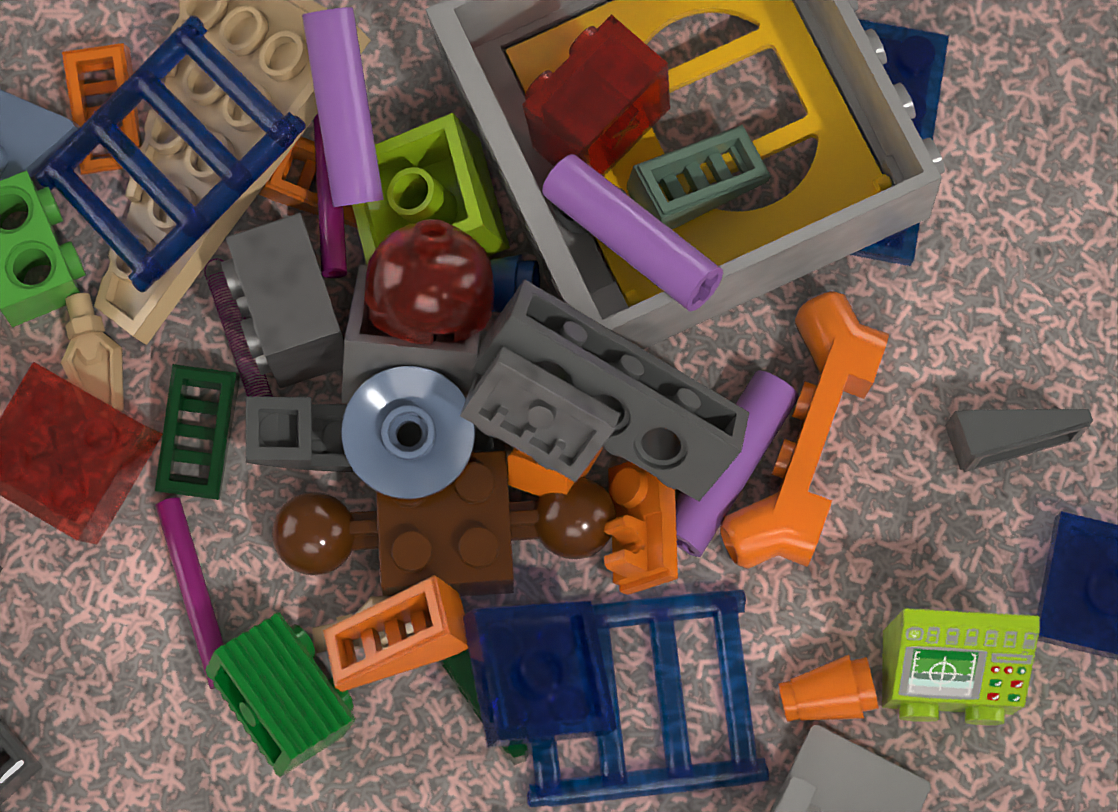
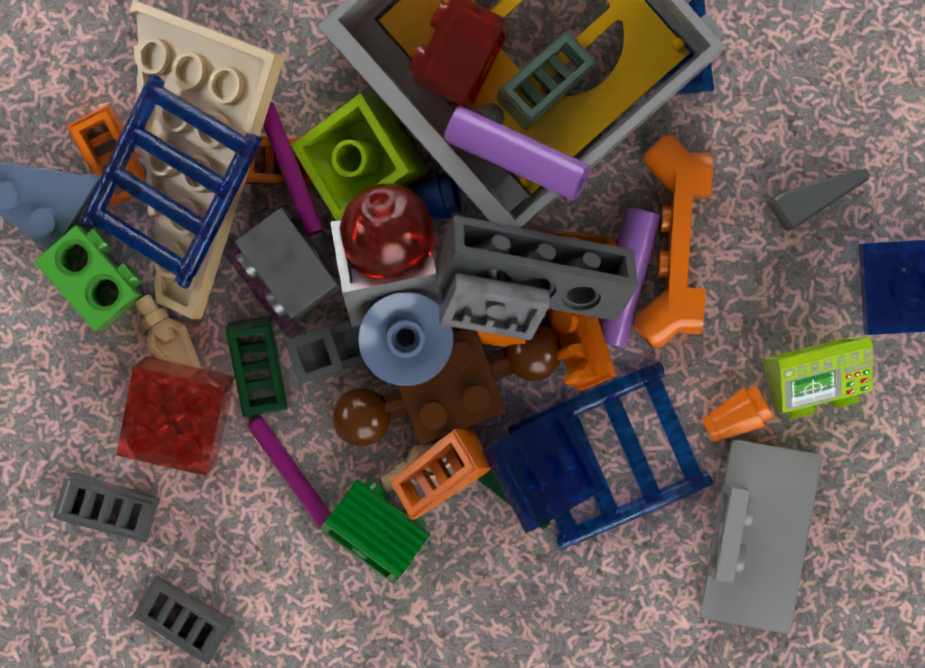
camera: 10 degrees left, 15 degrees up
(342, 106) = (283, 117): medium lavender piece -> none

